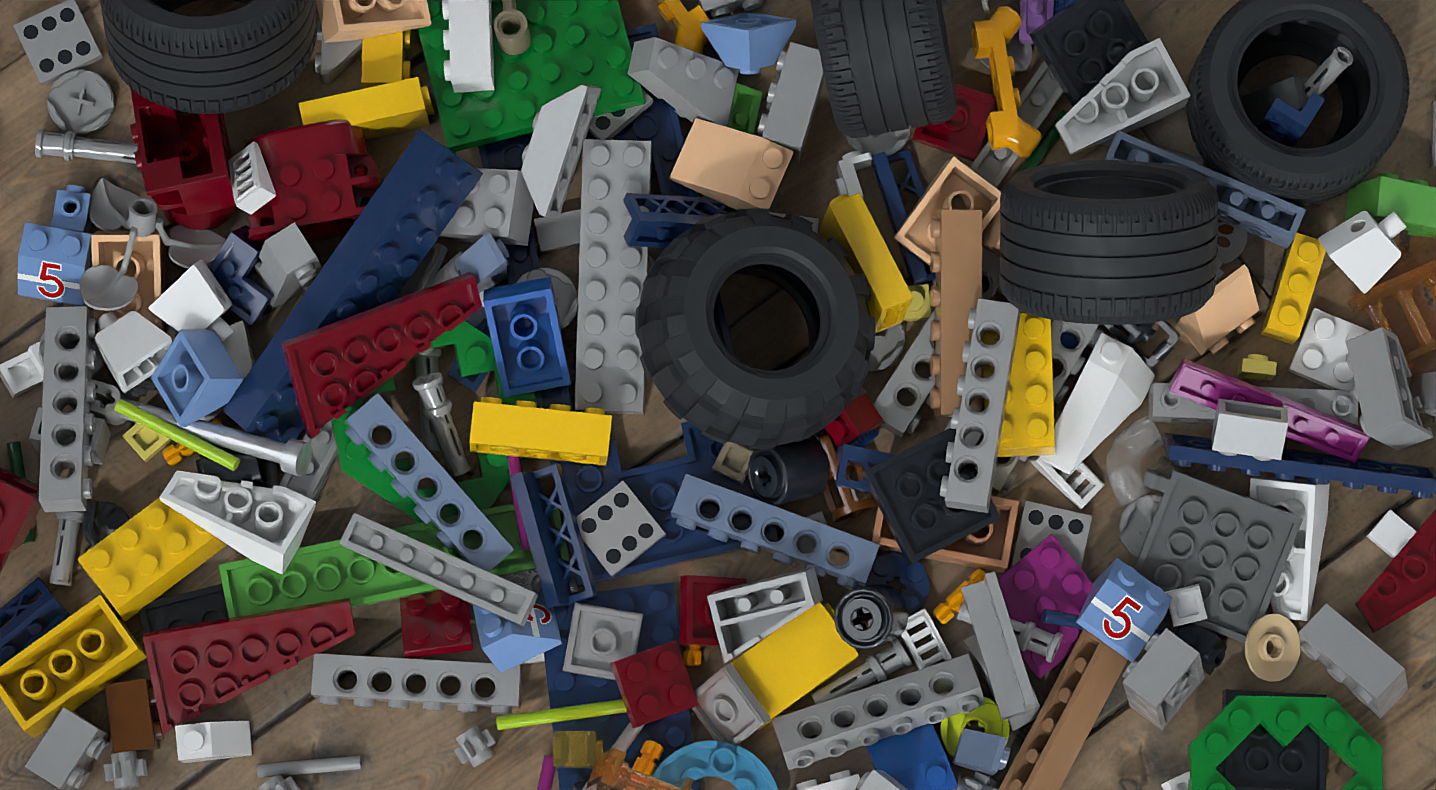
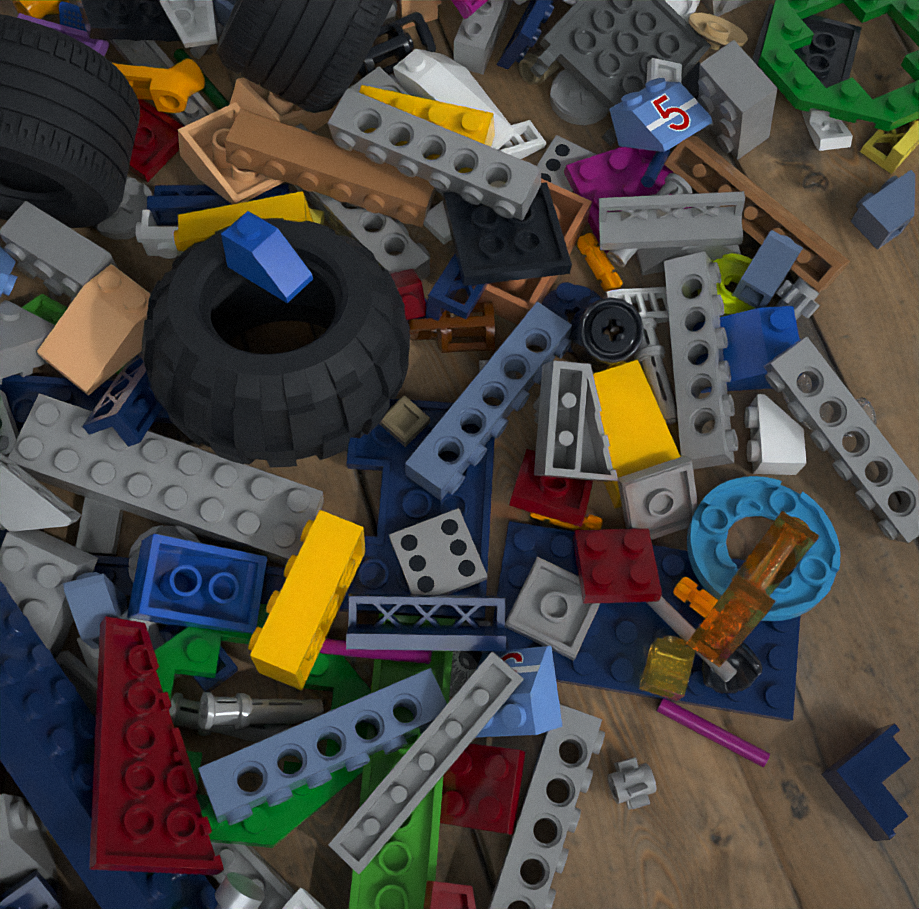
camera: 75 degrees left, 10 degrees down
(560, 714) = (621, 676): lime bar -> none
(788, 472) = (435, 369): black piece -> none
(798, 298) = (264, 257): none -> blue slope
(1125, 459) = (513, 92): clear cylinder -> none

